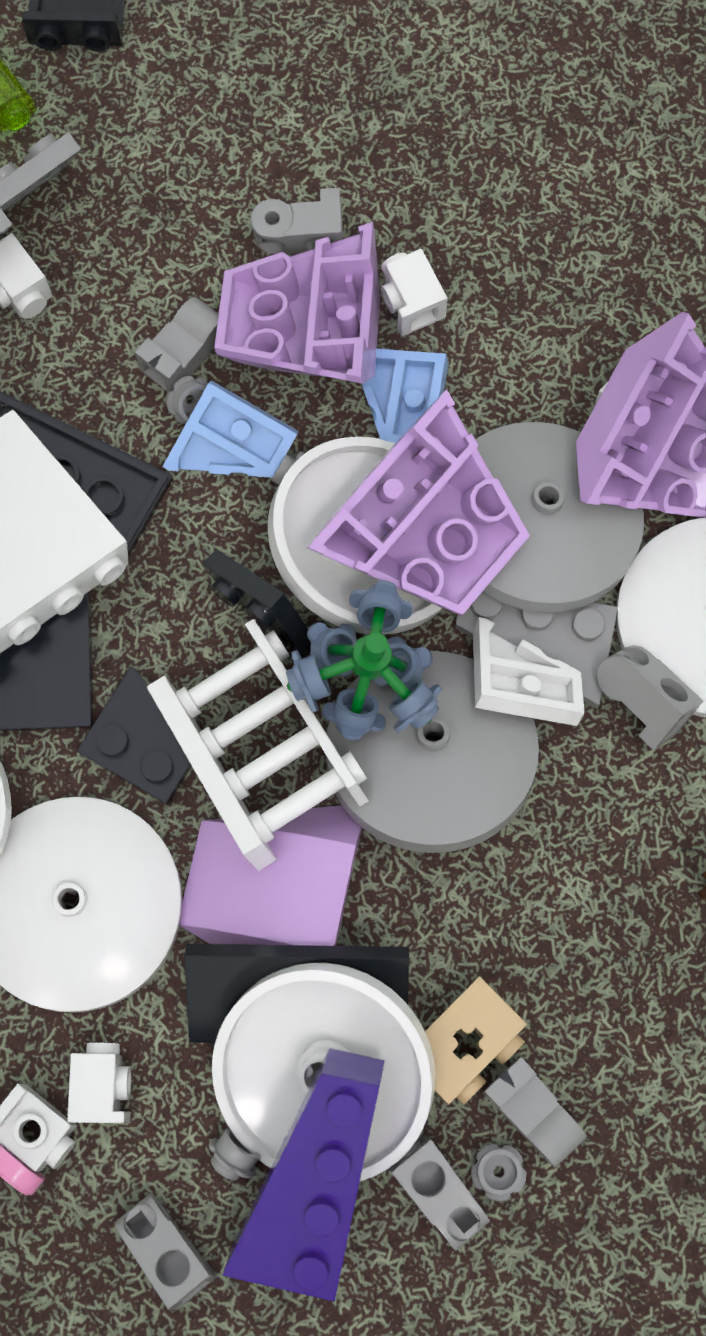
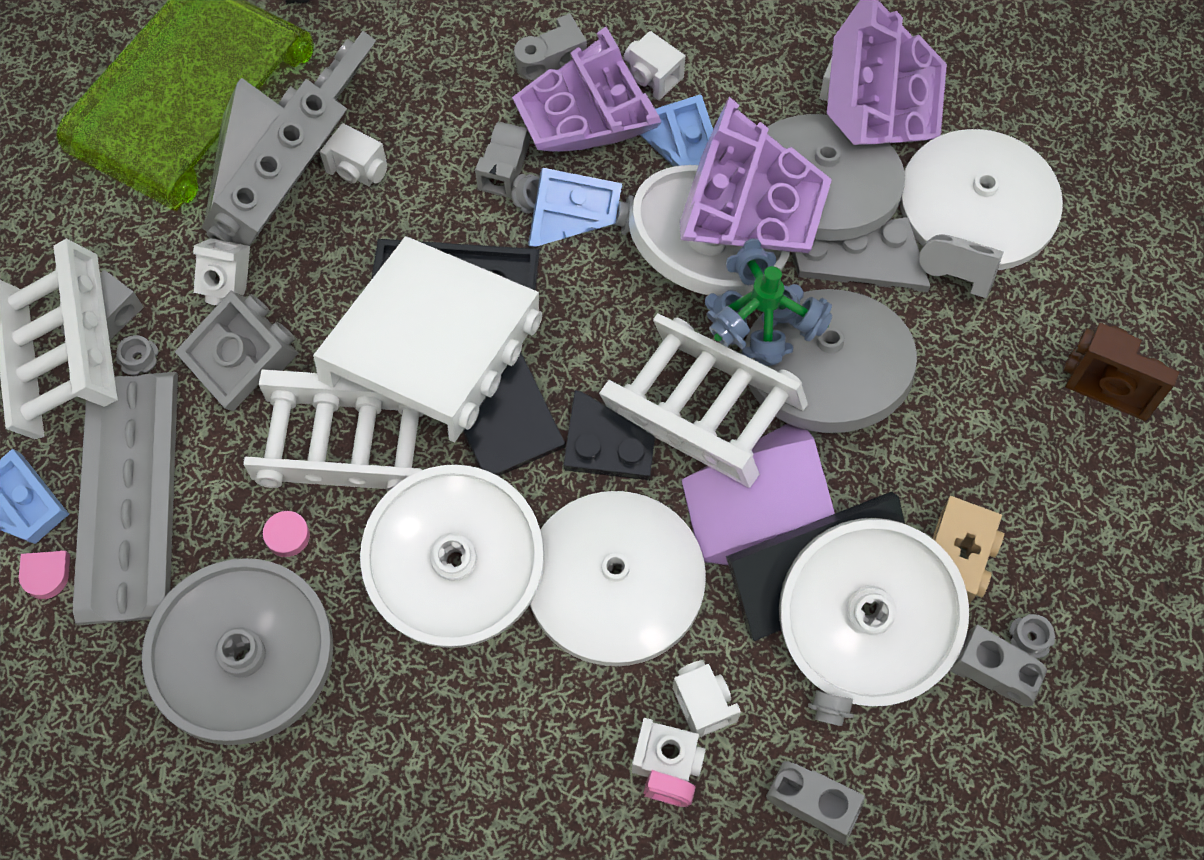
camera: 25 degrees left, 10 degrees down
(259, 600) = (644, 299): black wing -> none
(308, 1199) = (912, 700): dark purple wedge -> none
(523, 679) = (872, 283): white wing -> none
(535, 1112) = (1036, 580): light grey leg -> none

